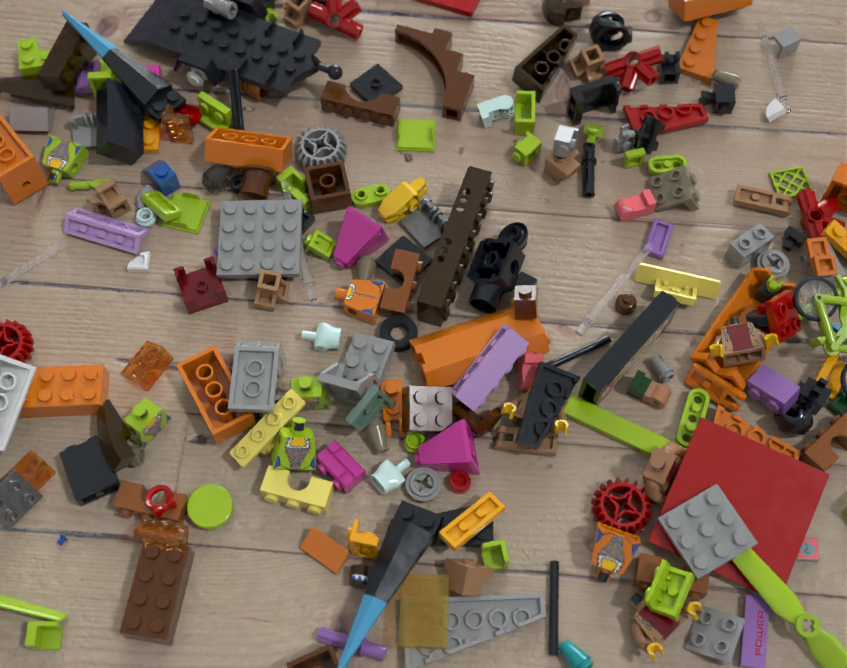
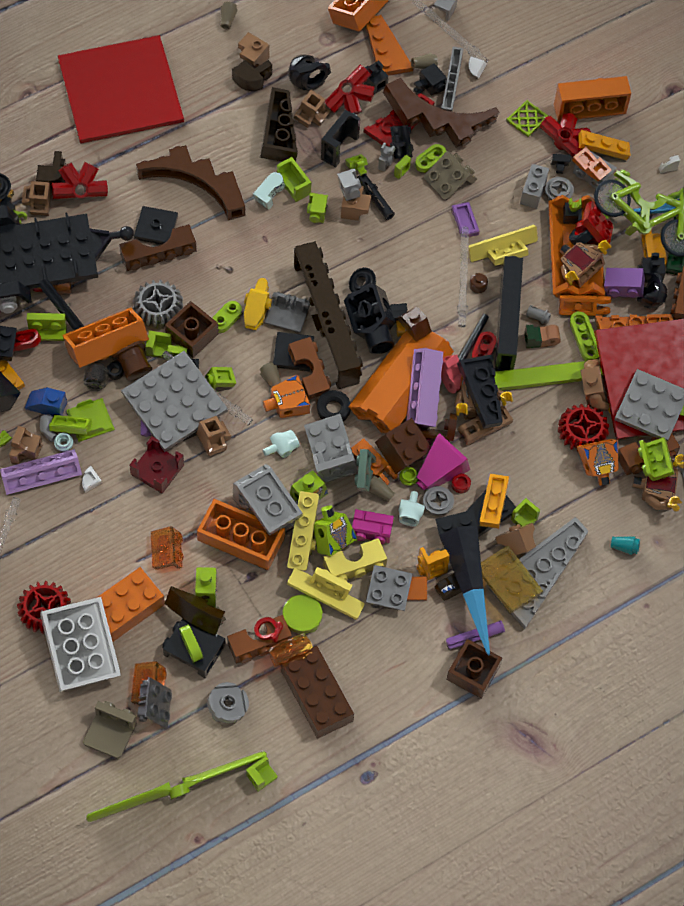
camera: 40 degrees left, 0 degrees up
(70, 531) = (219, 710): none -> light grey plate
(80, 464) = (191, 643): none -> lime beam
(177, 126) = (29, 355): clear orange bracket -> none
(247, 501) = (328, 590): none -> light yellow bracket
(304, 537) = (389, 588): none -> flat silver hinge
(357, 238) = (248, 355): dark pink slope -> none
(416, 135) = (220, 247): lime piece -> none
(553, 608) = (588, 524): black bar -> none
(579, 364) = (482, 349): none -> red plate
(636, 206) = (432, 203): coral leg -> none
(696, 134) = (412, 109): none -> reddish brown arch
(742, 108) = (452, 79): none -> light grey piece
(762, 200) = (518, 145): medium nougat plate -> none

